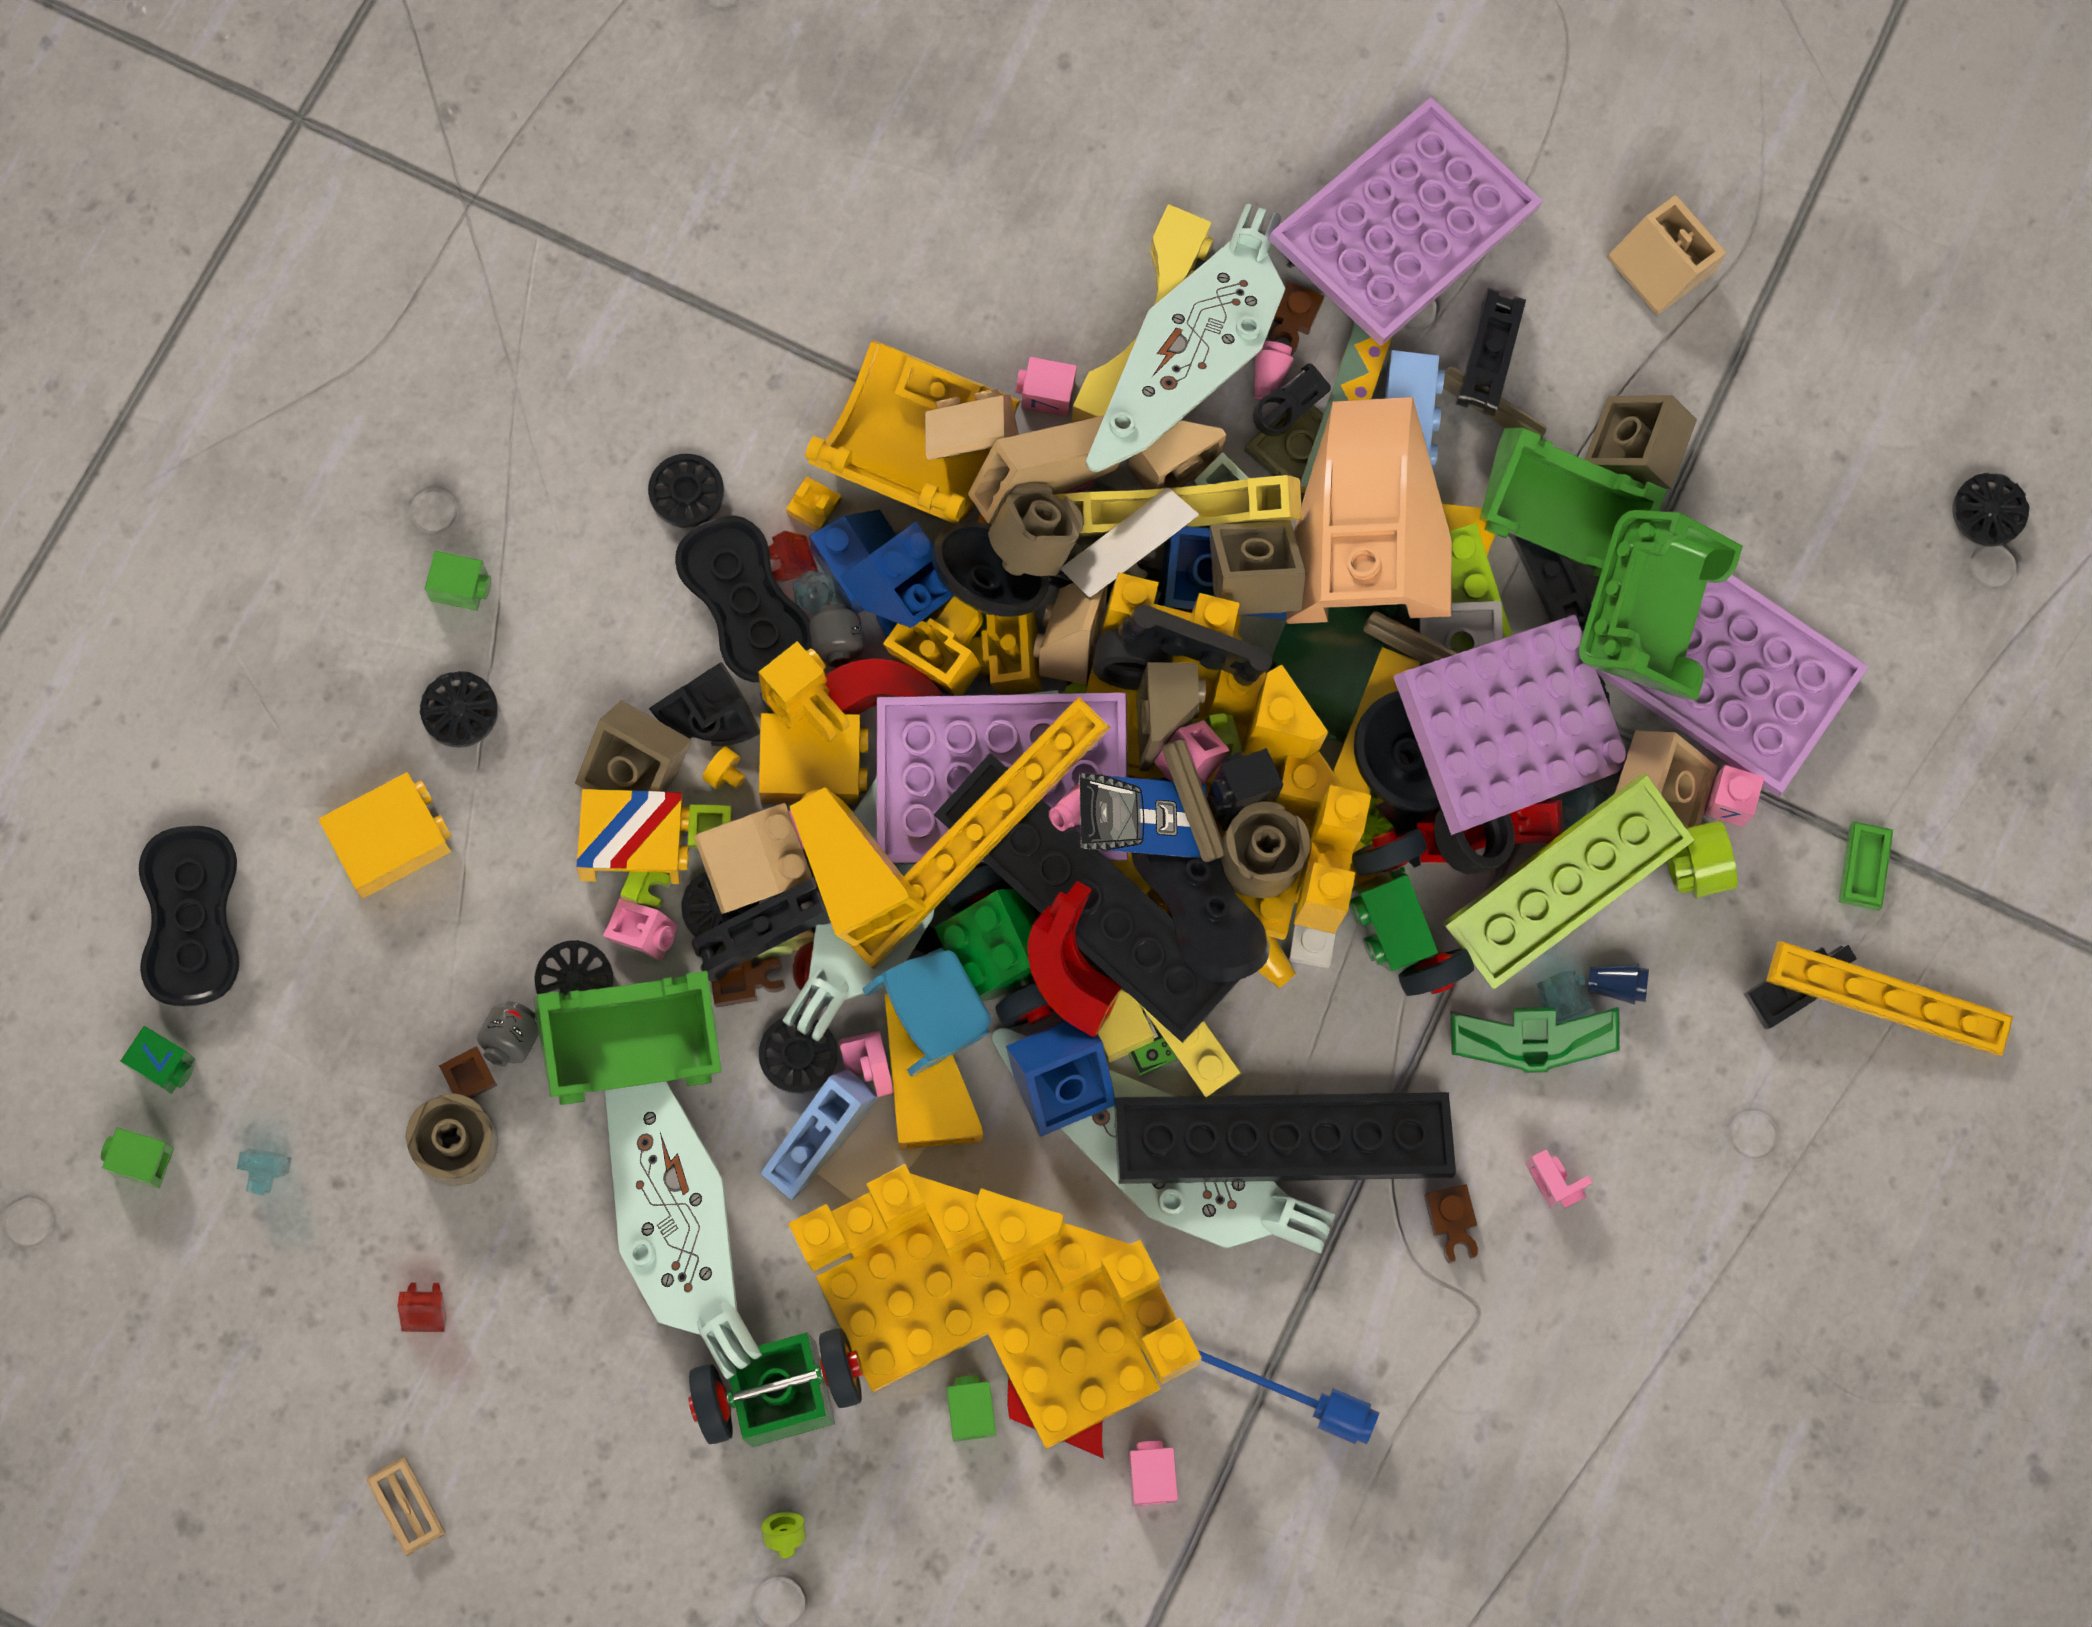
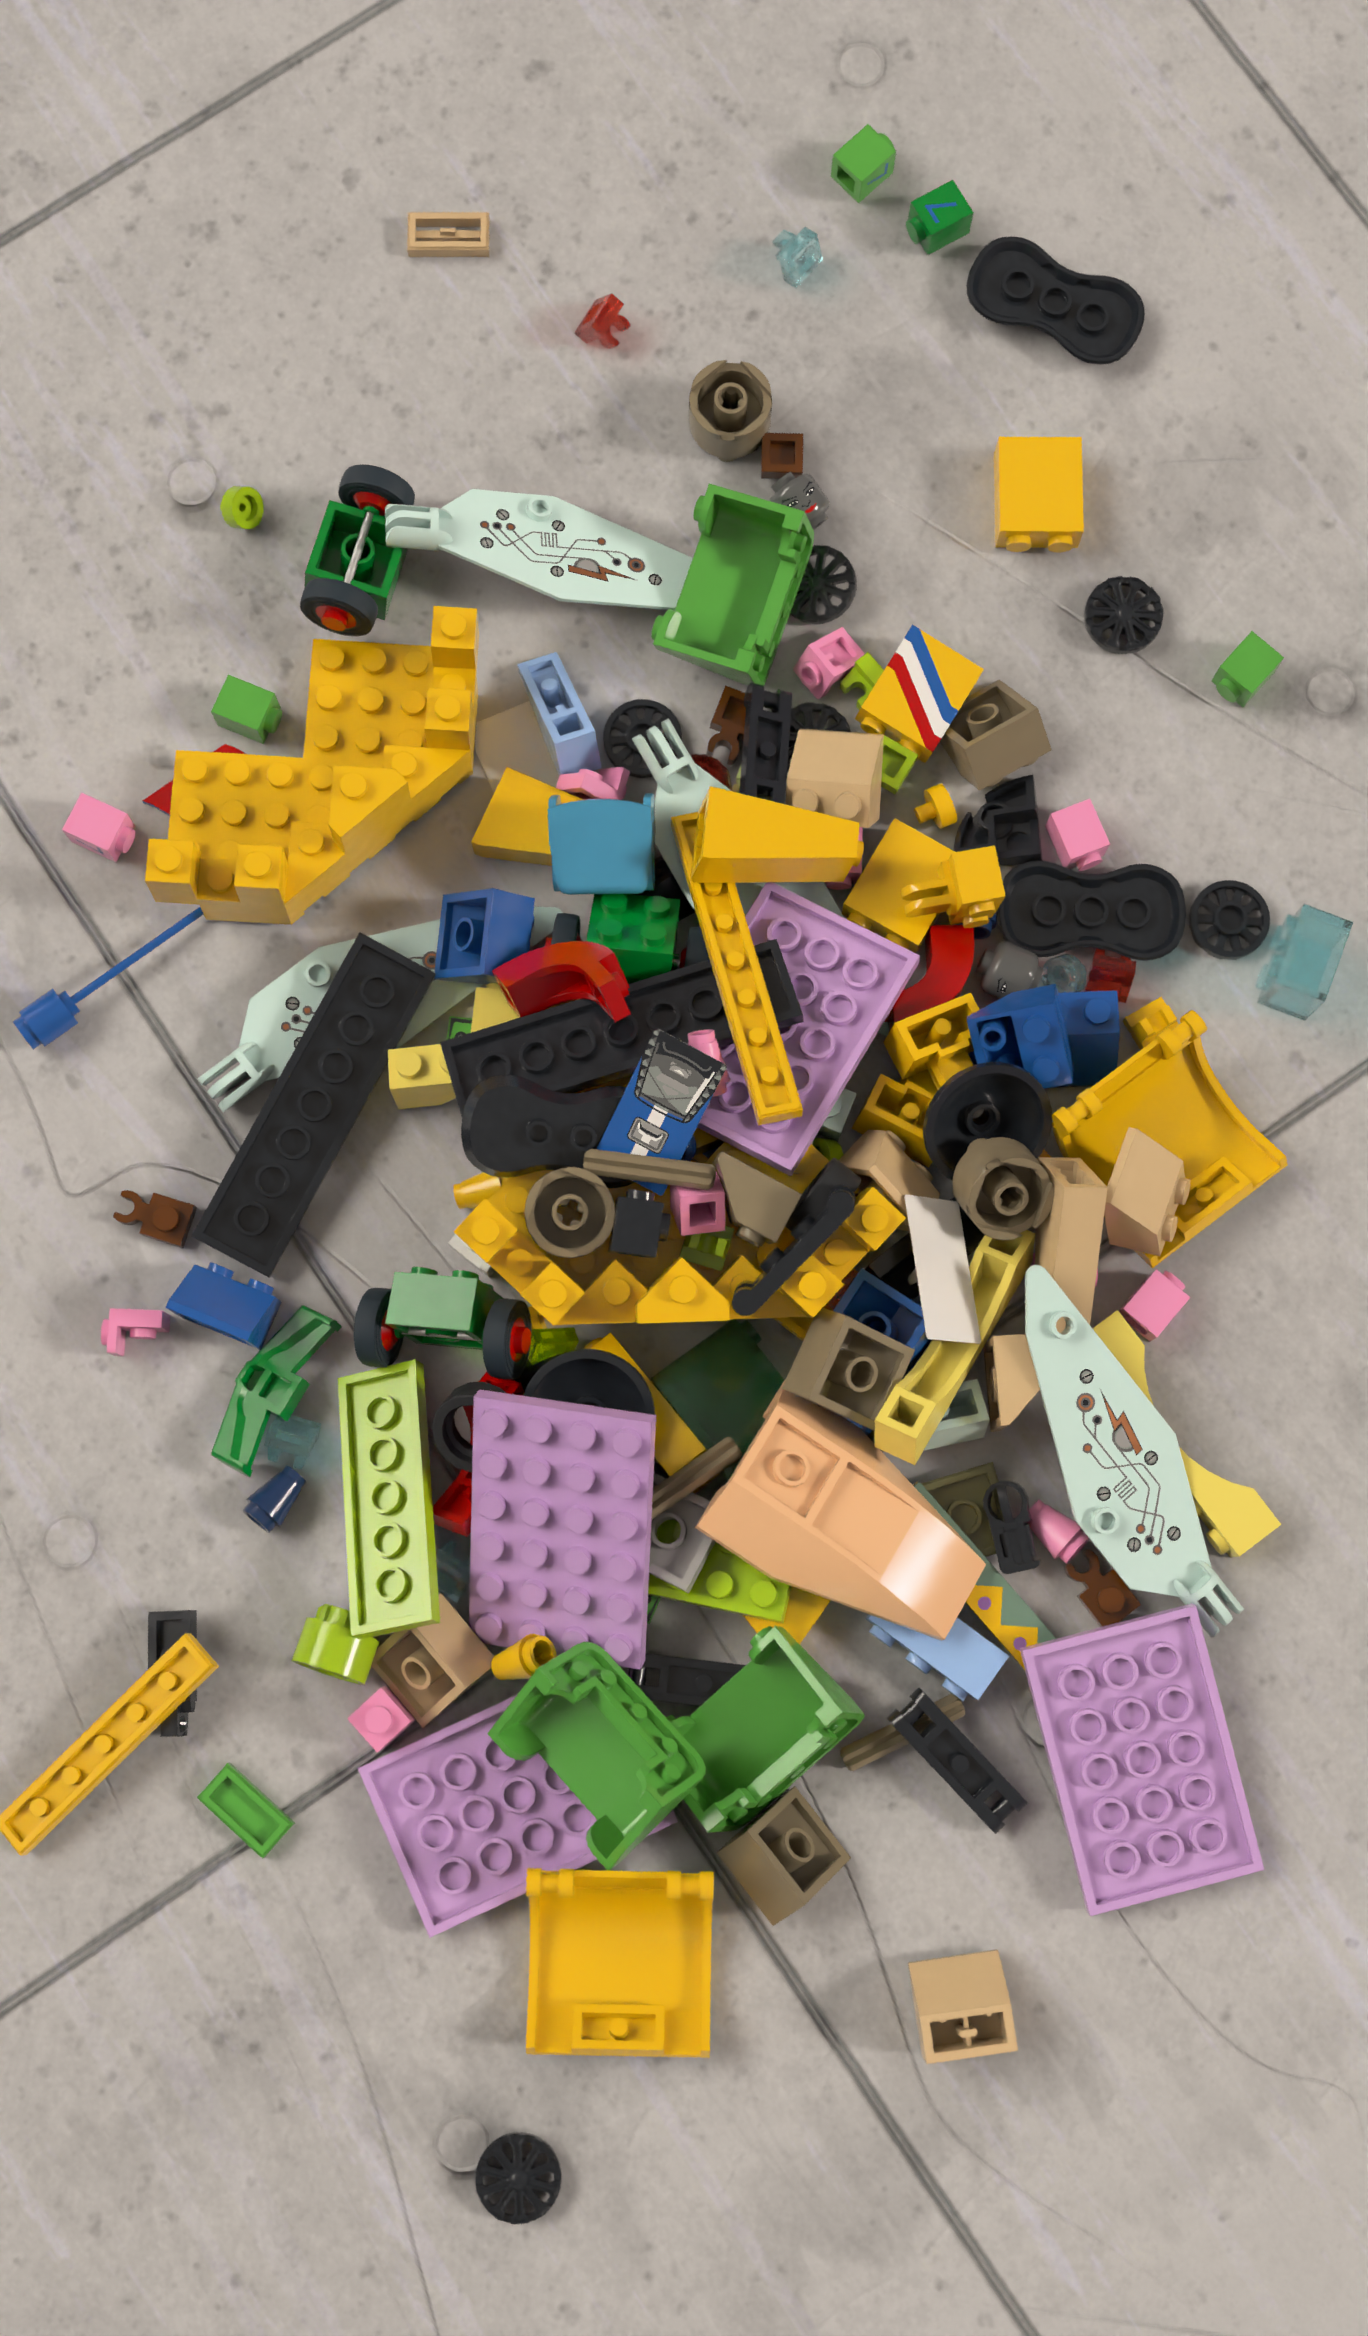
camera: 125 degrees right, 5 degrees up
(684, 642) = (1078, 836): none -> bright pink brick
(698, 405) = (1303, 961): none -> clear light blue piece
(1495, 1109) = (226, 1305): none -> blue slope
(1623, 703) = (523, 1658): none -> yellow cone
(1799, 514) = (619, 1963): none -> yellow hinge

